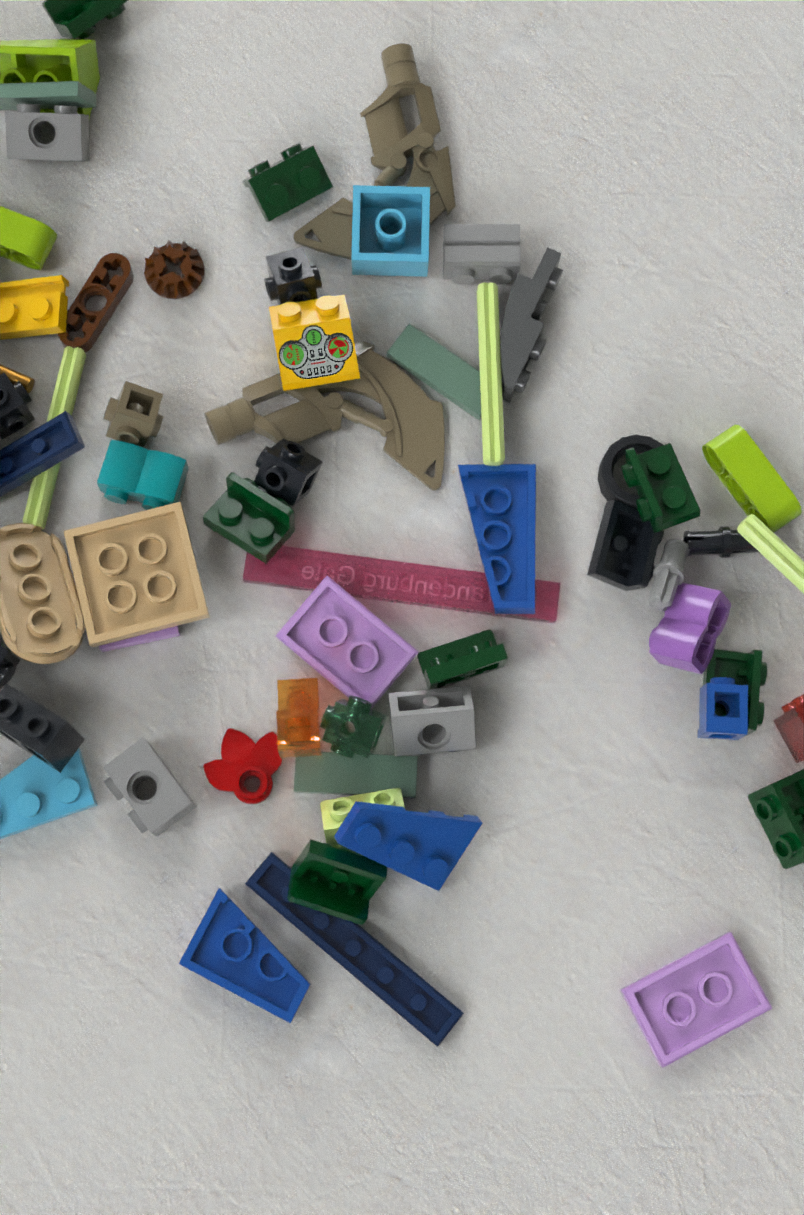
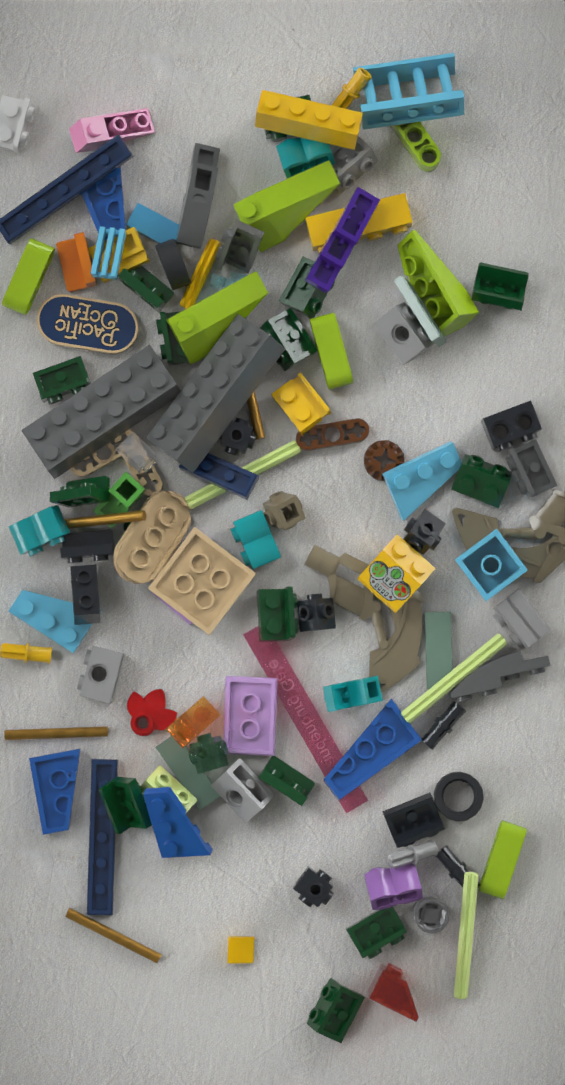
camera: 55 degrees right, 10 degrees up
(45, 863) = (26, 652): none -> yellow axle
(176, 906) = (51, 733): none -> pearl gold bar
(227, 243) = (420, 477): none -> medium azure wing
(244, 103) = (508, 419): none -> black brick
(318, 120) = (531, 469): none -> dark grey bracket
(417, 500) = (352, 693): none -> teal brick
(490, 1033) = (113, 935): none -> pearl gold bar
(536, 429) = (443, 725): none -> black pin
(610, 735) = (310, 878): none -> black brick
(630, 880) = (240, 949): none -> yellow slope
(661, 487) = (455, 816): dark green bracket -> none
(695, 999) = (206, 1024): lavender tile -> none
(734, 699) = (356, 943): blue brick -> none
(759, 609) = (430, 915): none -> flat silver wheel

